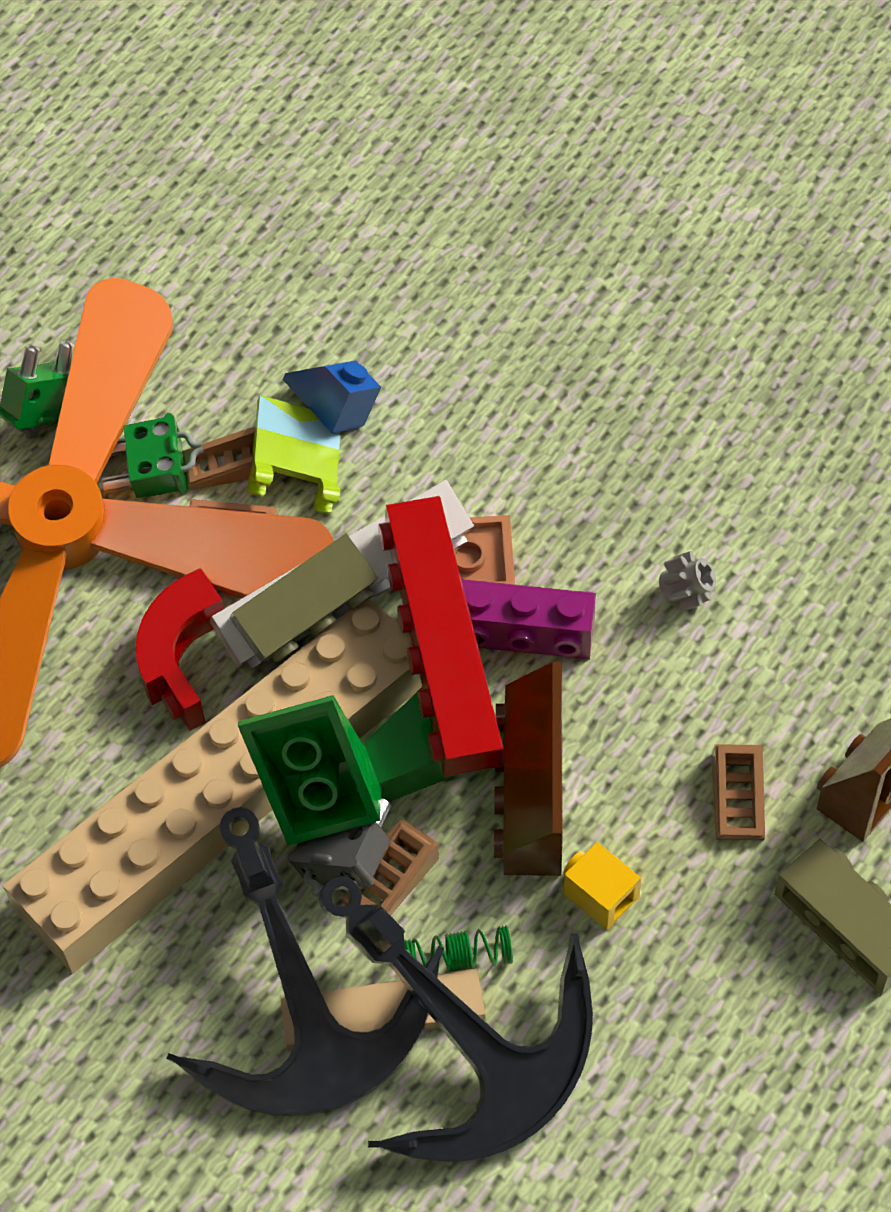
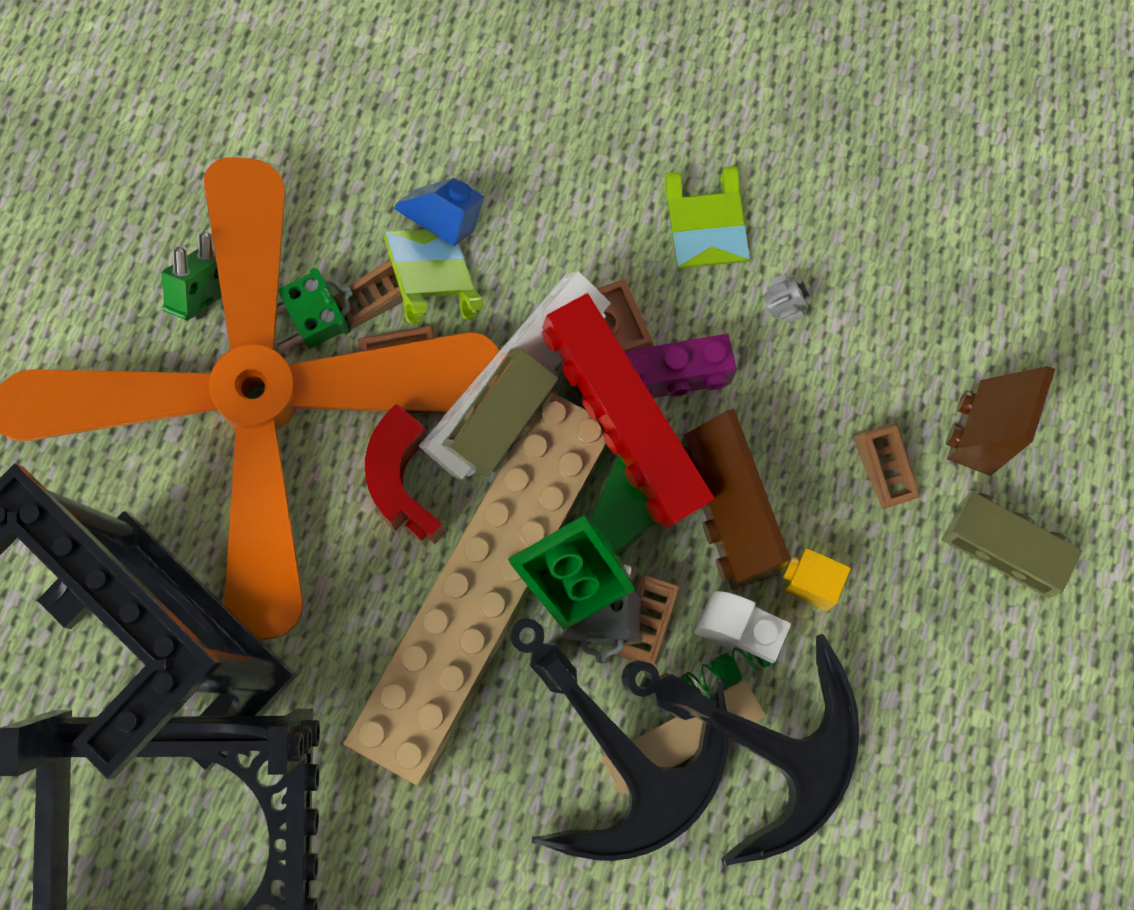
camera: 25 degrees left, 15 degrees up
(488, 901) = (737, 622): none -> white brick
(629, 487) = (707, 227): none -> lime flag

